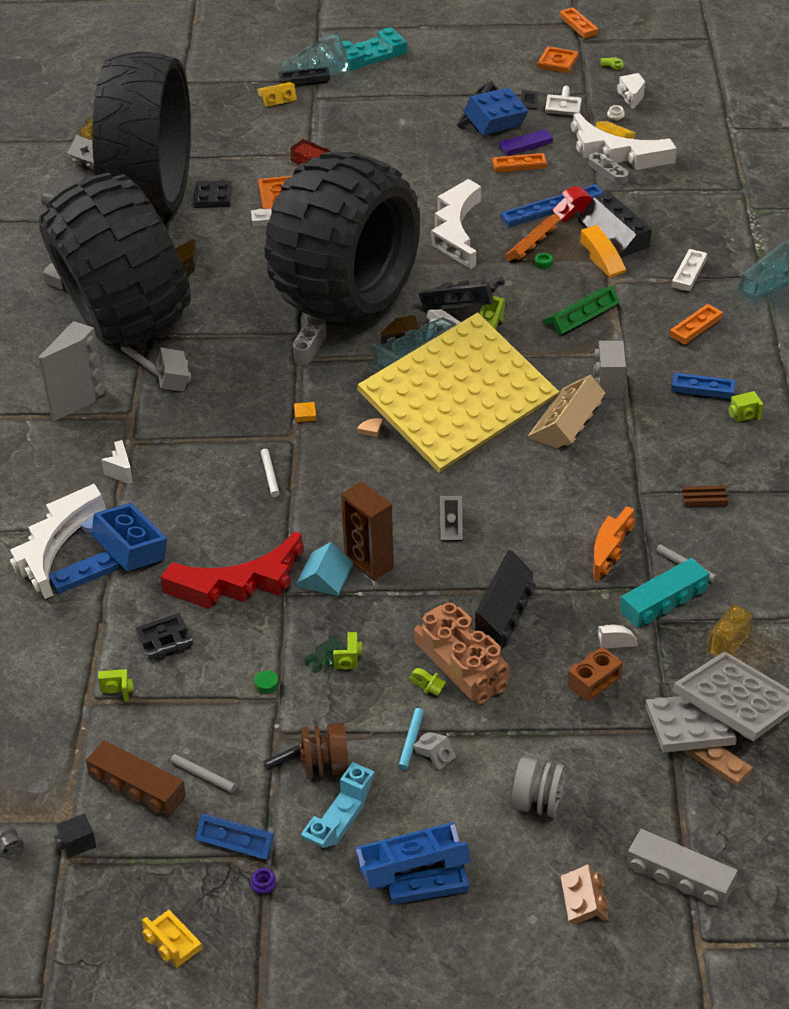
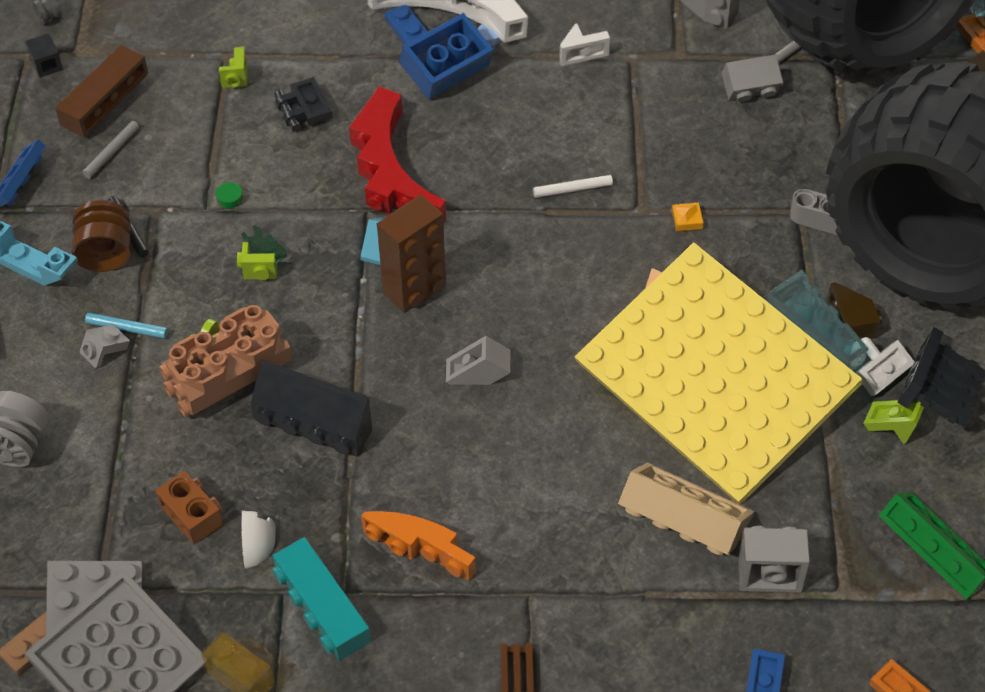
camera: 90 degrees right, 10 degrees up
(678, 559) = (383, 636): light grey bar -> none

